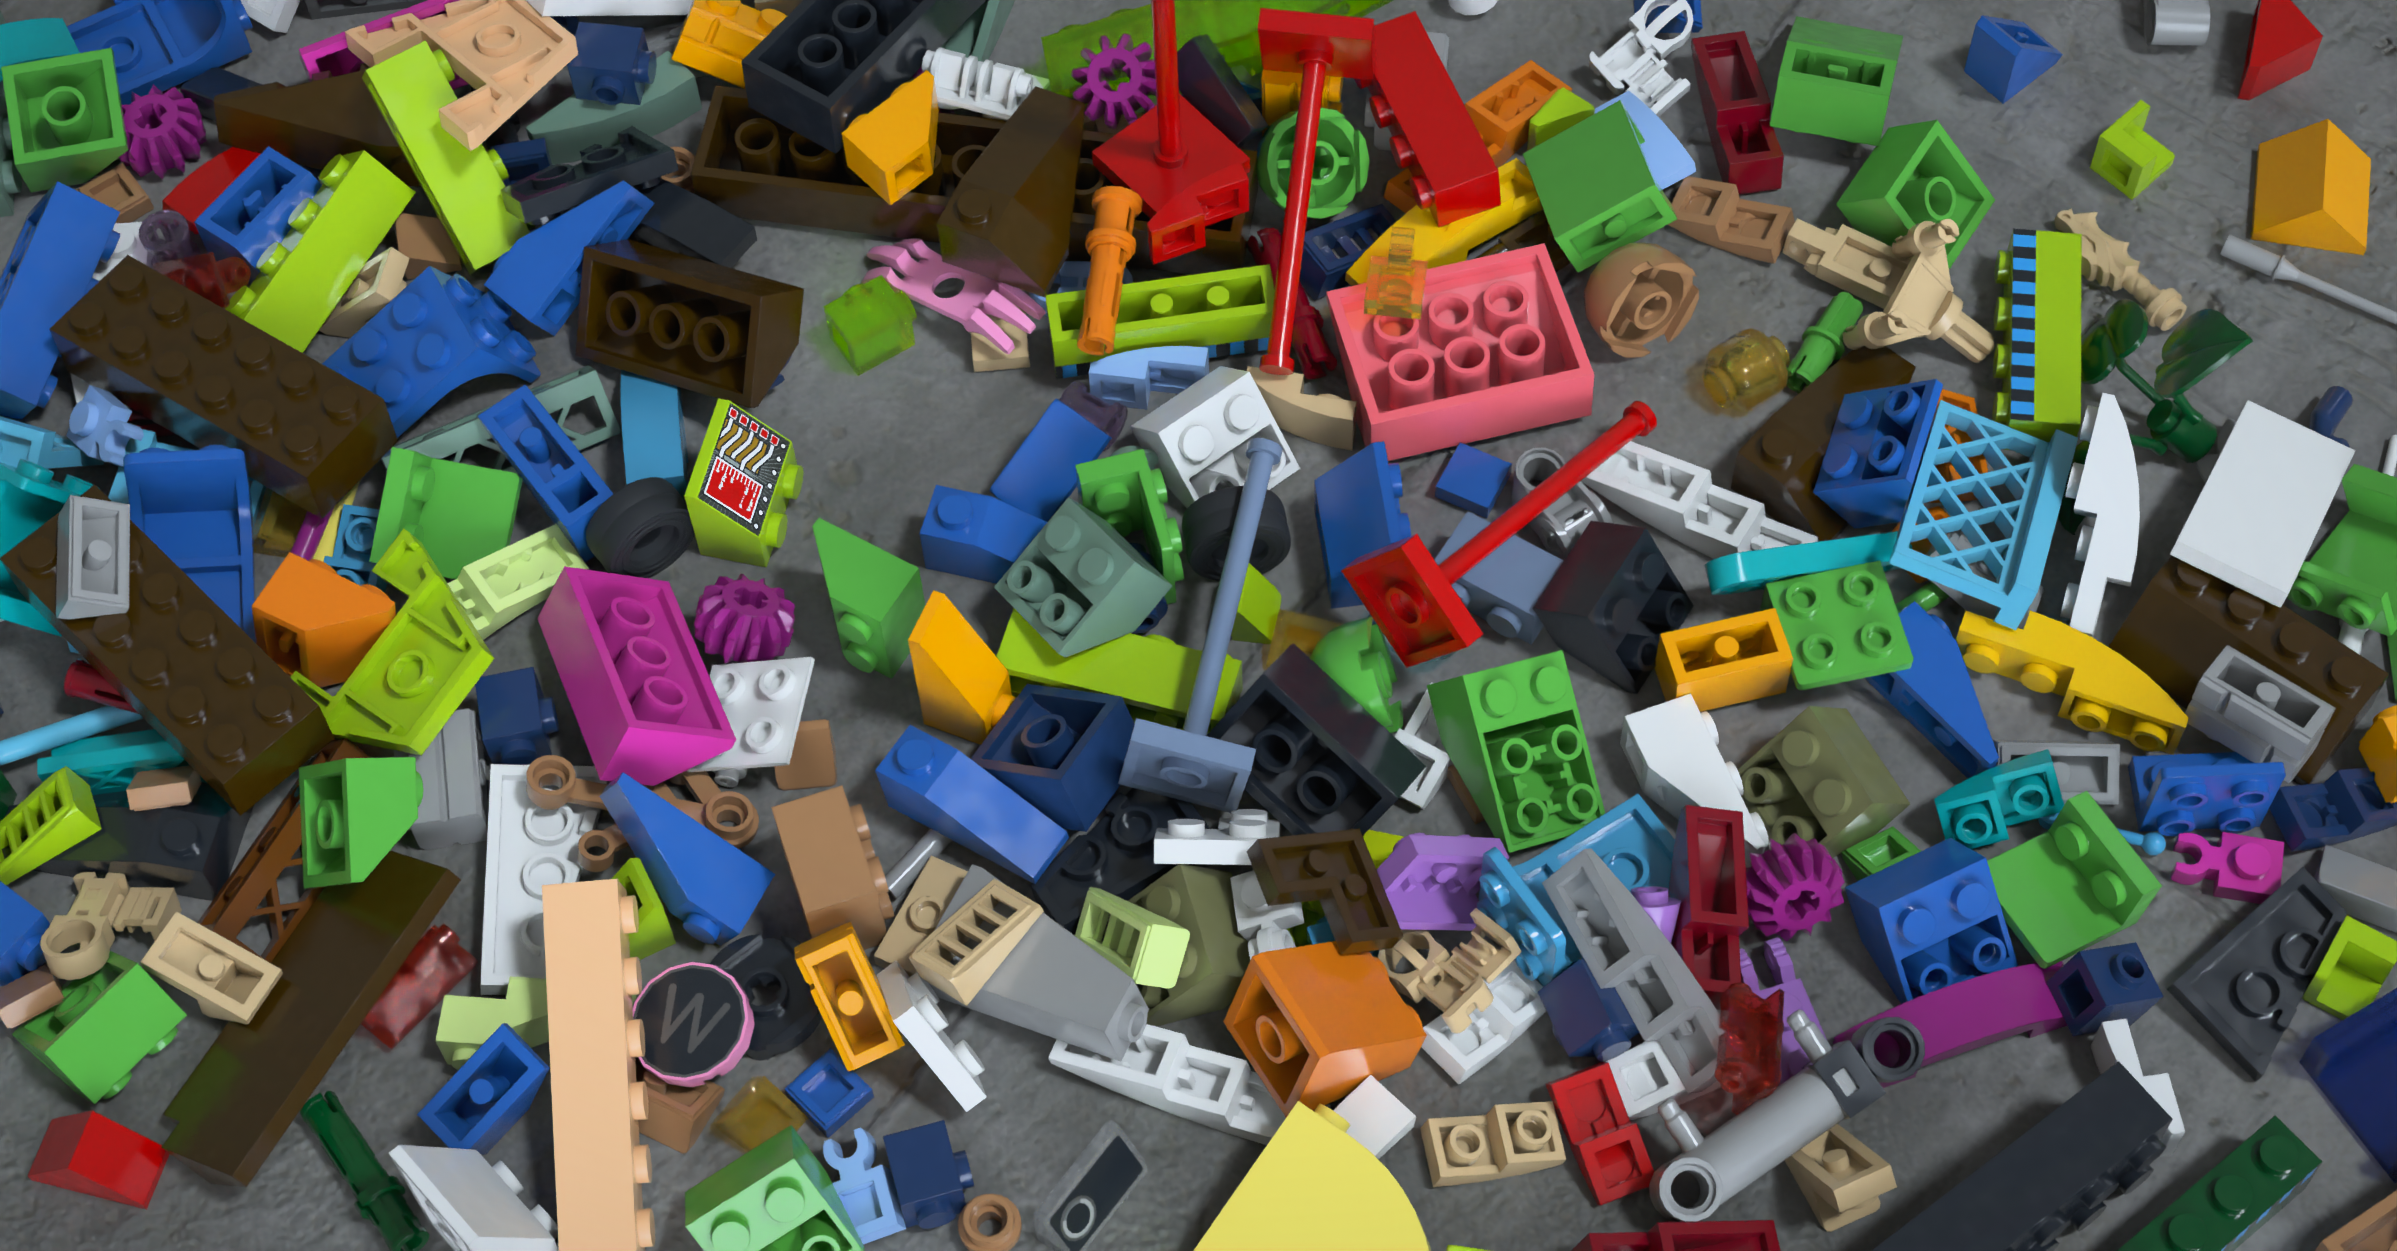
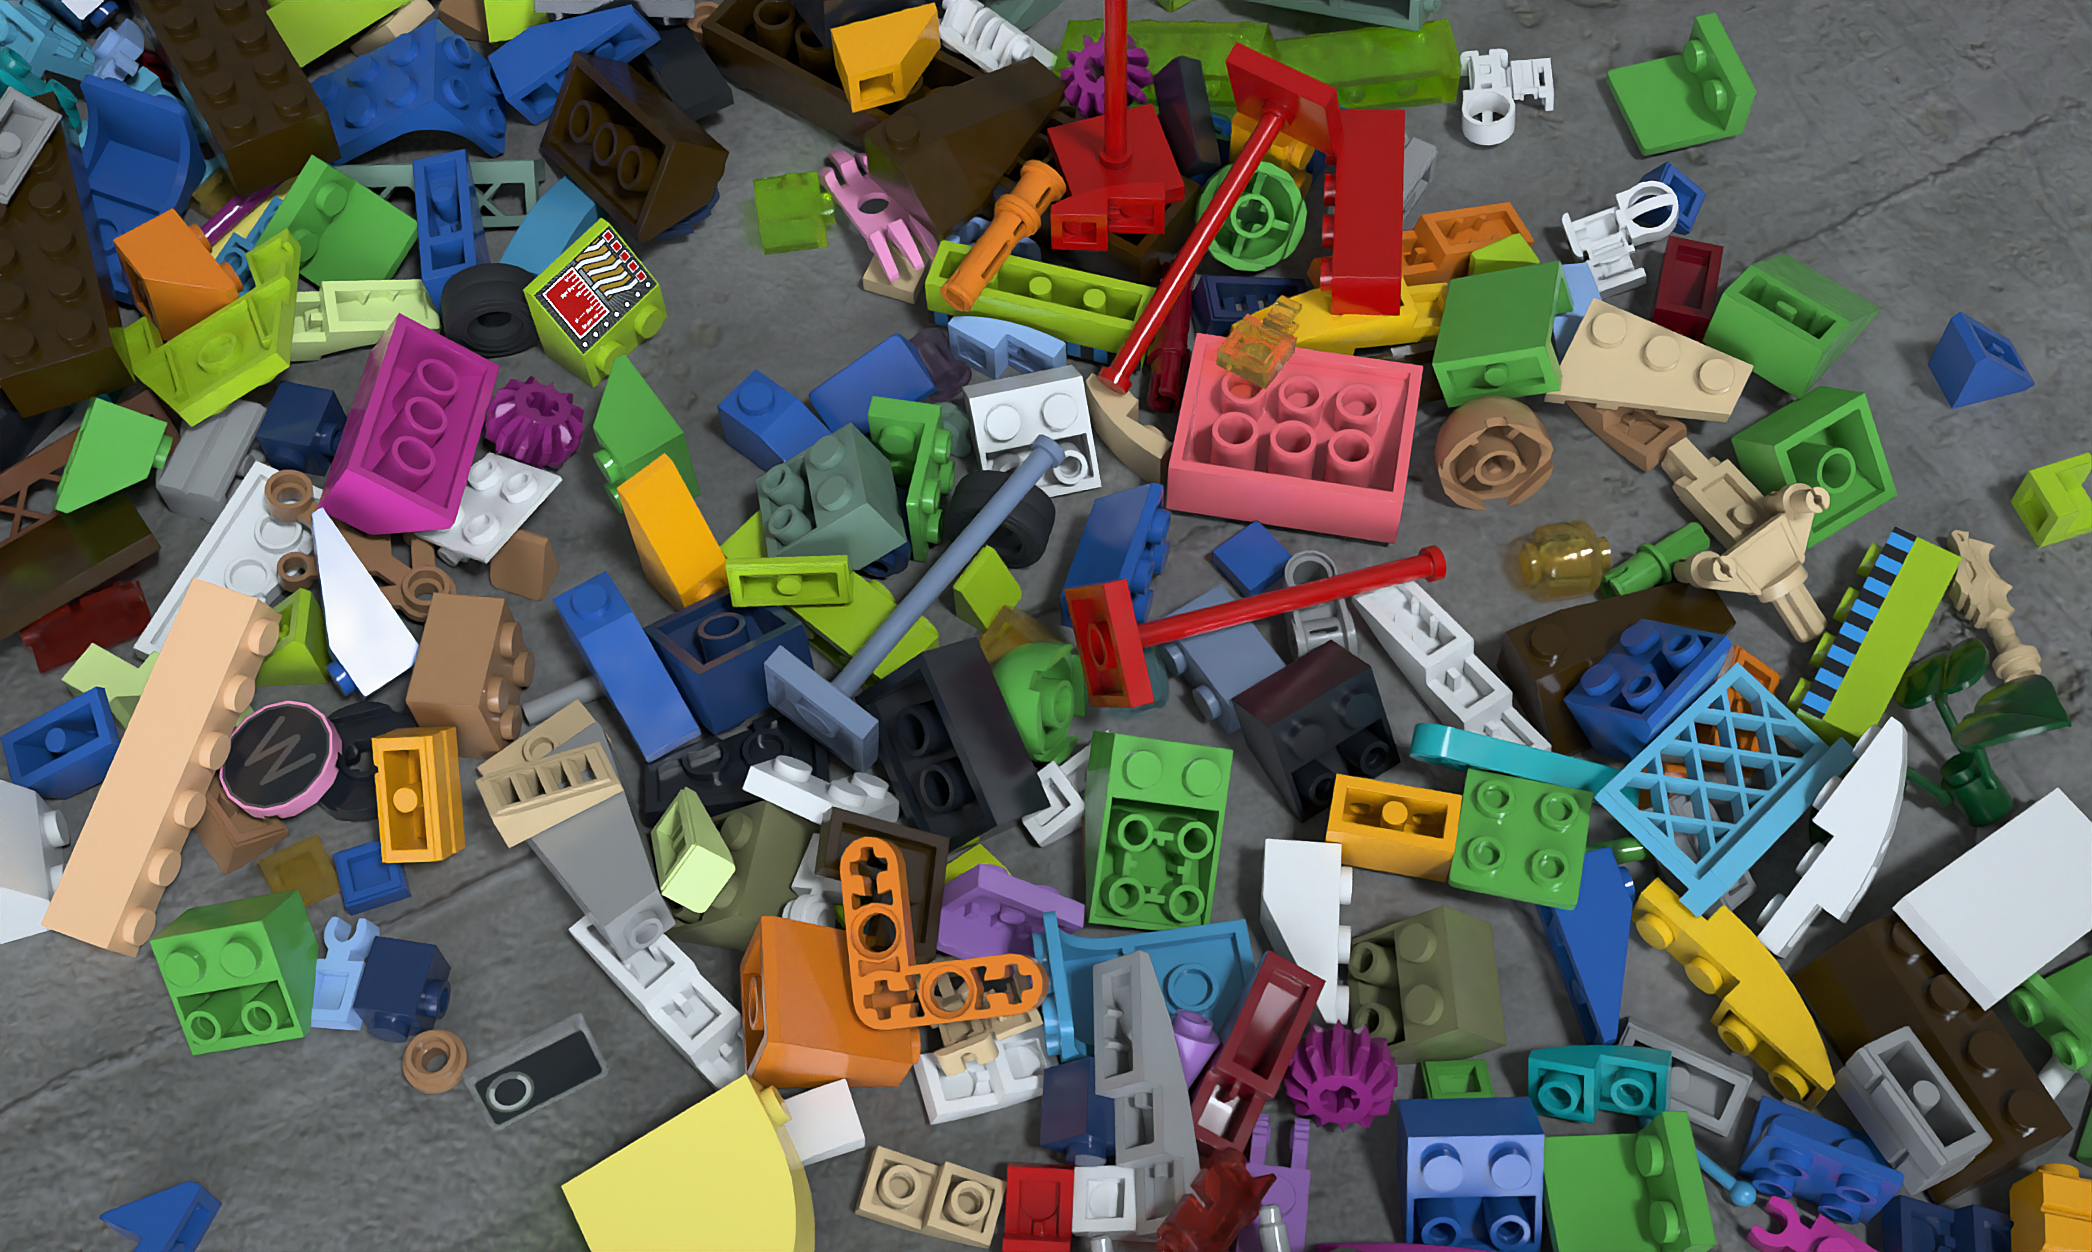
camera: 25 degrees right, 0 degrees up
(921, 1021) = (460, 846): white plate -> none
(1088, 664) = (790, 580): none -> lime slope
(1384, 948) = (899, 961): none -> orange beam
(1734, 168) = (1644, 366): none -> tan wing

